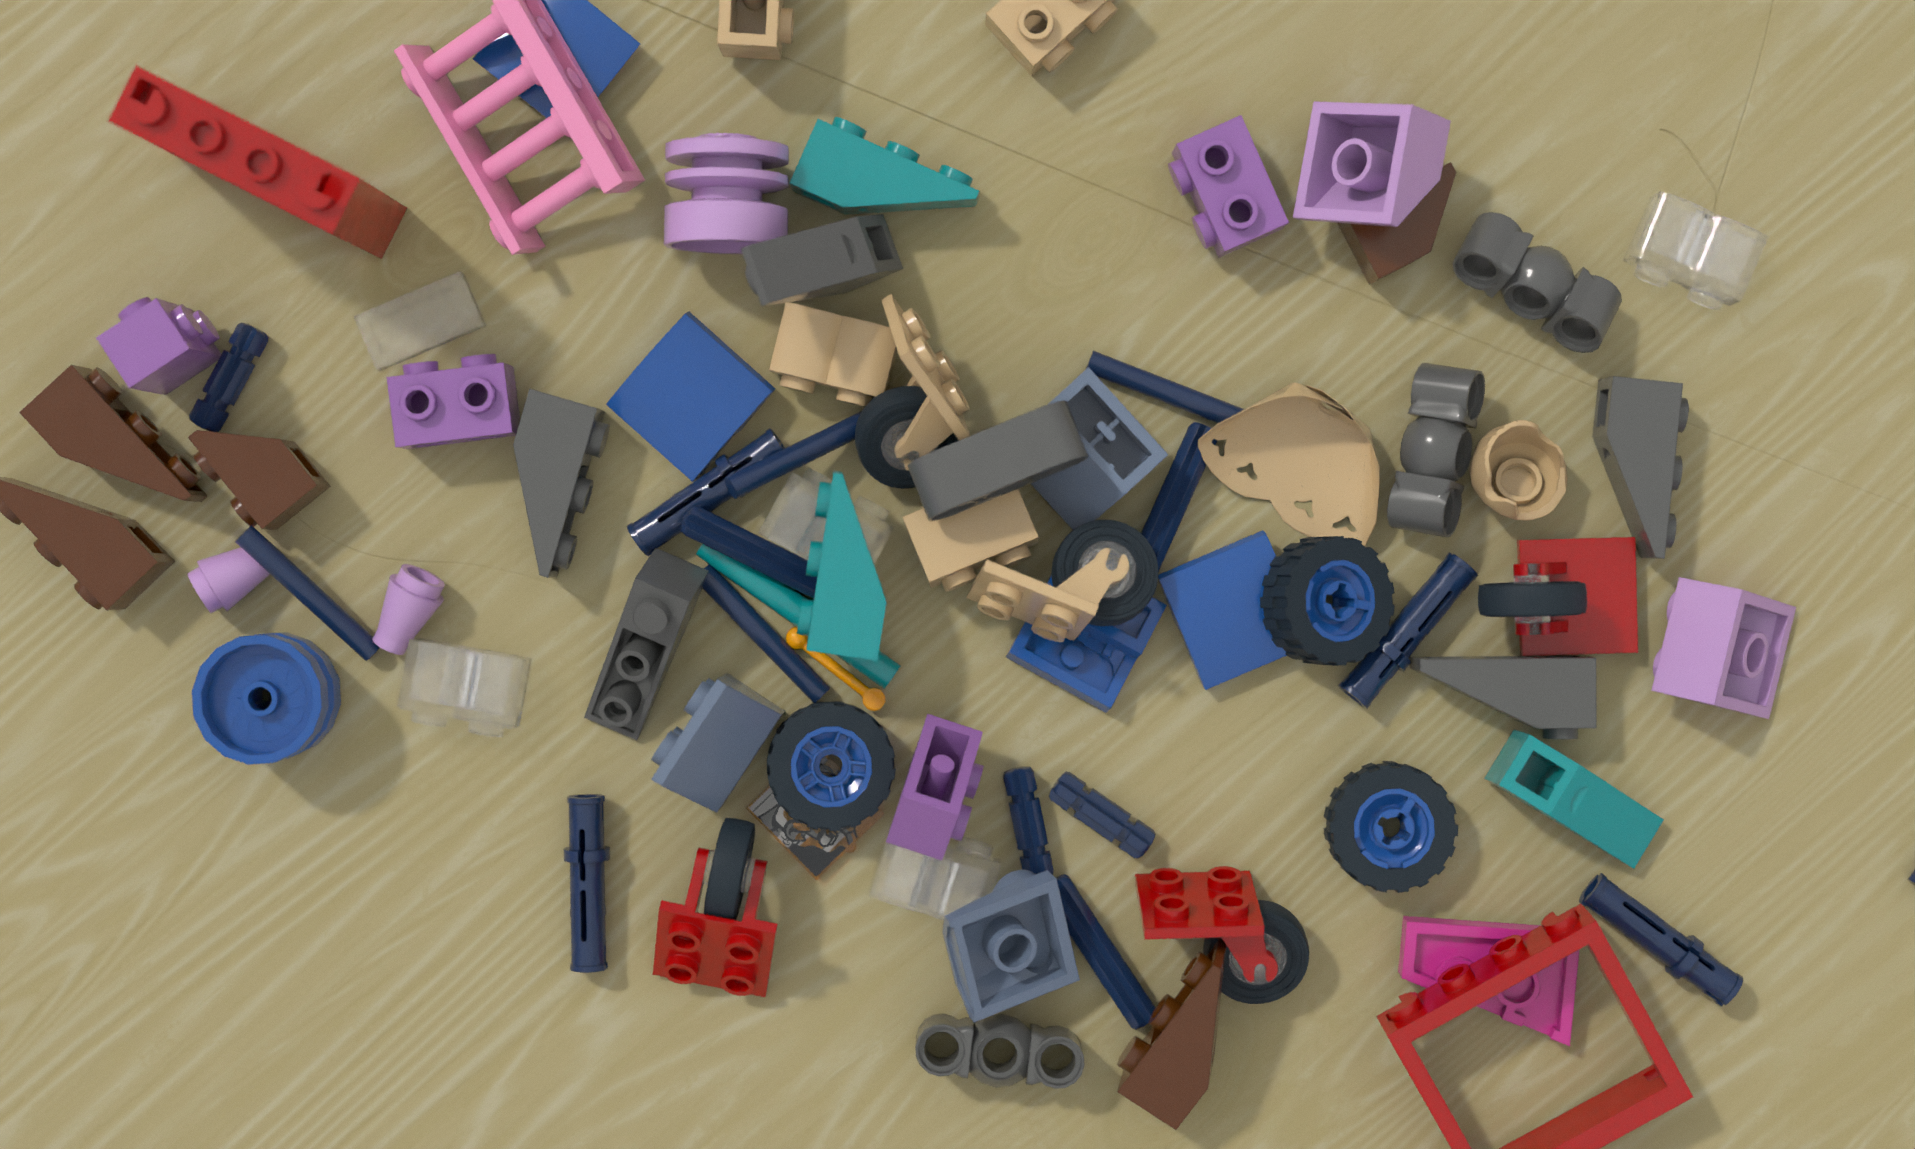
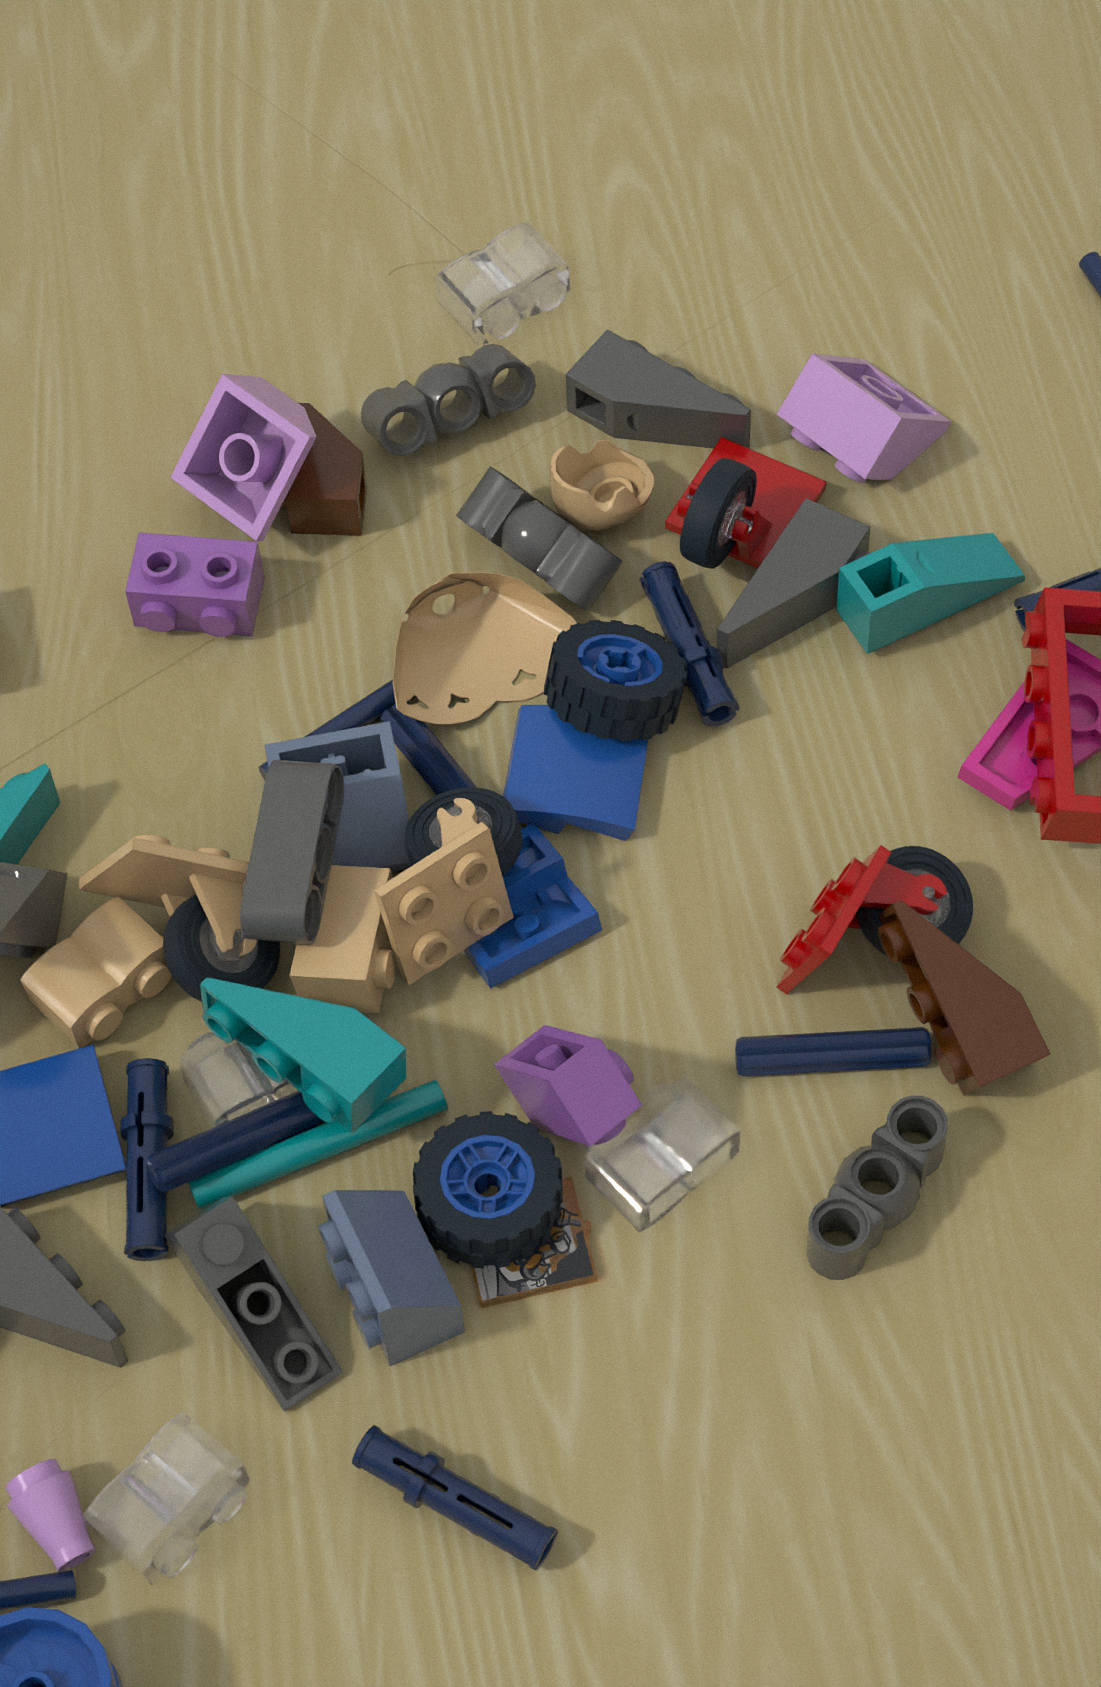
camera: 55 degrees left, 30 degrees down
(713, 945) = (583, 1375): red plate -> none
(764, 635) = (310, 1192): dark blue bar -> none
(792, 457) = (166, 1052): dark blue bar -> none
(872, 697) = (345, 1161): light orange hinge -> none
(1010, 944) = (769, 1102): sand blue slope -> none
(1027, 820) = (665, 1048): dark blue axle -> none
(1102, 815) = (697, 979): dark blue axle -> none
(1424, 832) = (848, 769): black wheel -> none

